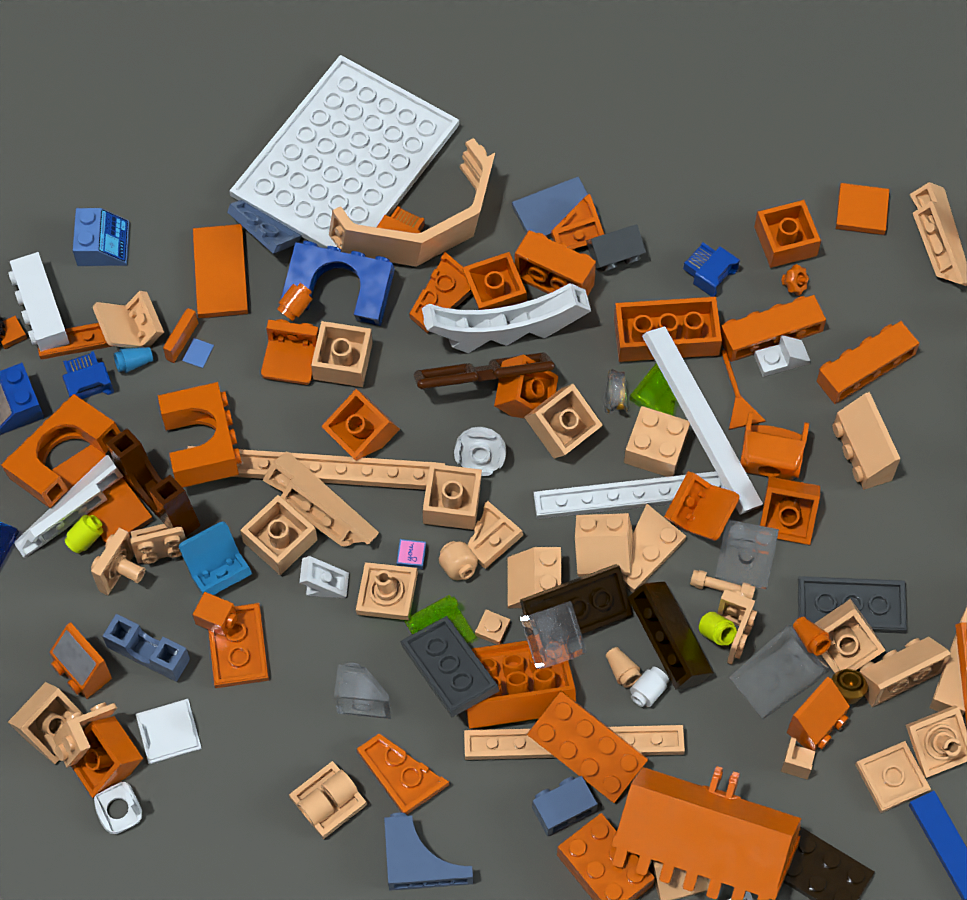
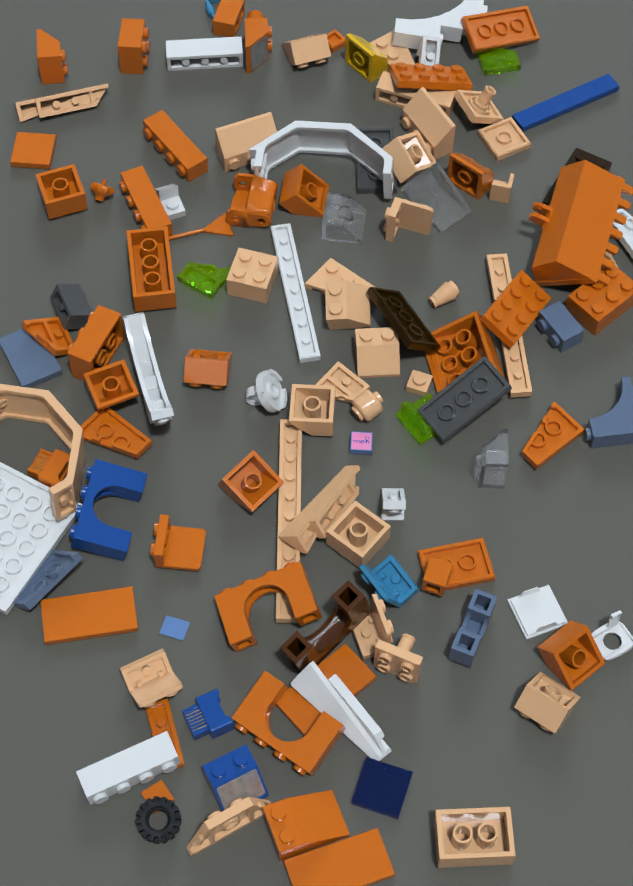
camera: 95 degrees left, 5 degrees down
(71, 740) = (563, 669): light nougat bracket -> none
(79, 662) = (493, 679): slope -> none
(84, 533) = (369, 694): neon yellow brick -> none
(100, 238) = (55, 725): medium blue slope -> none
(132, 358) = (188, 678): dark azure cone -> none
(180, 335) = (161, 638): orange tile -> none
(295, 301) = (134, 534): orange brick -> none
(328, 799) = (580, 484): light nougat plate -> none
(342, 354) = (181, 499): light nougat brick -> none
(386, 591) = (398, 455): light nougat plate -> none
(468, 373) = (196, 391): reddish brown bar -> none
(553, 635) = (436, 327): clear slope -> none
(563, 421) = (240, 333): light nougat brick -> none
(616, 392) = (211, 301): clear piece -> none
(649, 687) = (459, 275): white brick -> none
(670, 635) = (417, 262): dark brown brick -> none
(700, 579) = (372, 223): light nougat bar -> none
(701, 418) = (235, 240): white tile -> none
(701, 507) = (312, 238): orange bracket -> none
(710, 267) = (90, 244): blue piece -> none
(717, 628) = (408, 233): neon yellow brick -> none
(812, 636) = (419, 164): orange cone -> none
(838, 459) = (322, 139): none -> white panel
(850, 684) = (442, 152): pearl gold cone -> none

